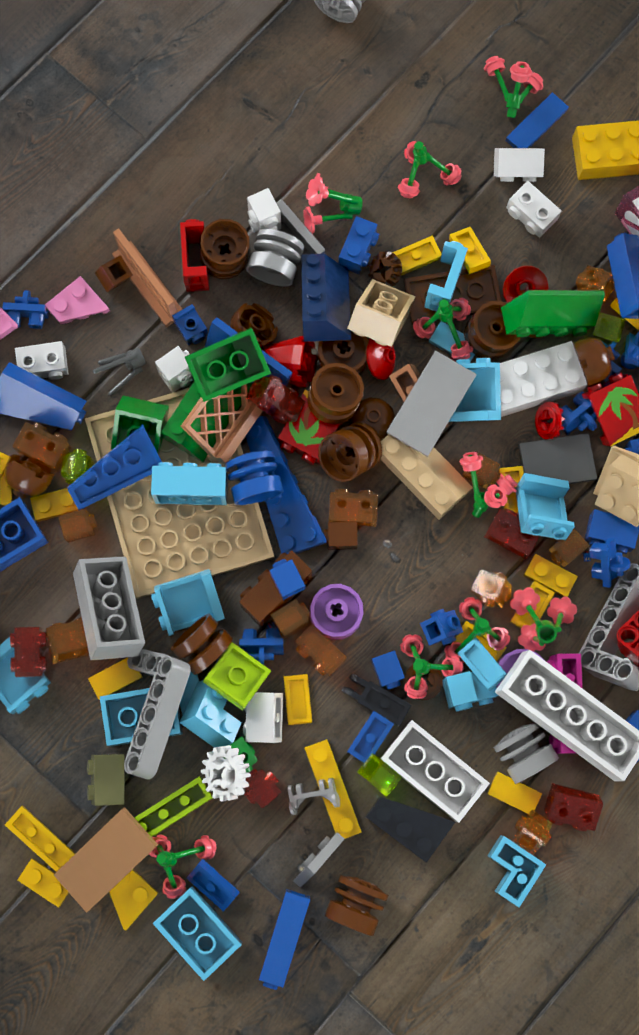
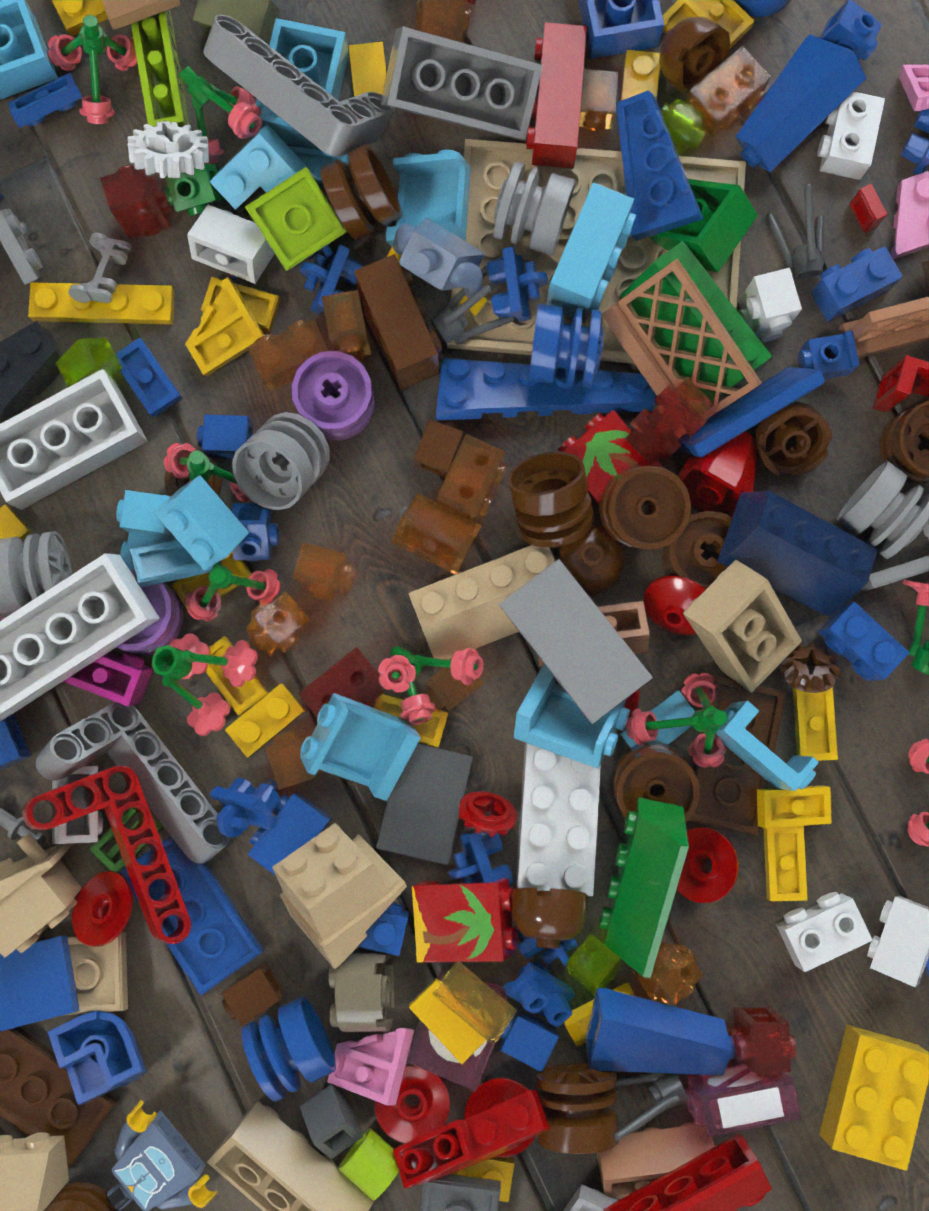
camera: 115 degrees right, 5 degrees up
(86, 335) = (868, 208): none -> red tile
(100, 542) = (559, 96): none -> brick
(139, 324) = (855, 284): none -> blue brick
(171, 754) = (239, 105): none -> plant
(173, 531) = (533, 208): none -> light grey wheel
(214, 531) = (511, 270): none -> blue hips
(227, 364) = (744, 359): green slope -> none
(230, 575) = (440, 259): none -> sand blue torso
(262, 555) = (451, 321): none -> dark grey plant
(287, 578) = (395, 324): blue brick -> none
(321, 699) = (224, 331): none -> yellow wing
(379, 700) = (186, 412): black hinge -> none
(393, 623) = (281, 461): none -> light grey wheel
(394, 520) = (436, 533): none -> clear orange brick
(449, 570) = (324, 572): none -> clear orange brick
(454, 649) = (201, 522): none -> medium azure brick
(505, 243) = (785, 864): none -> yellow plate
(609, 220) = (763, 1040): none -> clear red brick

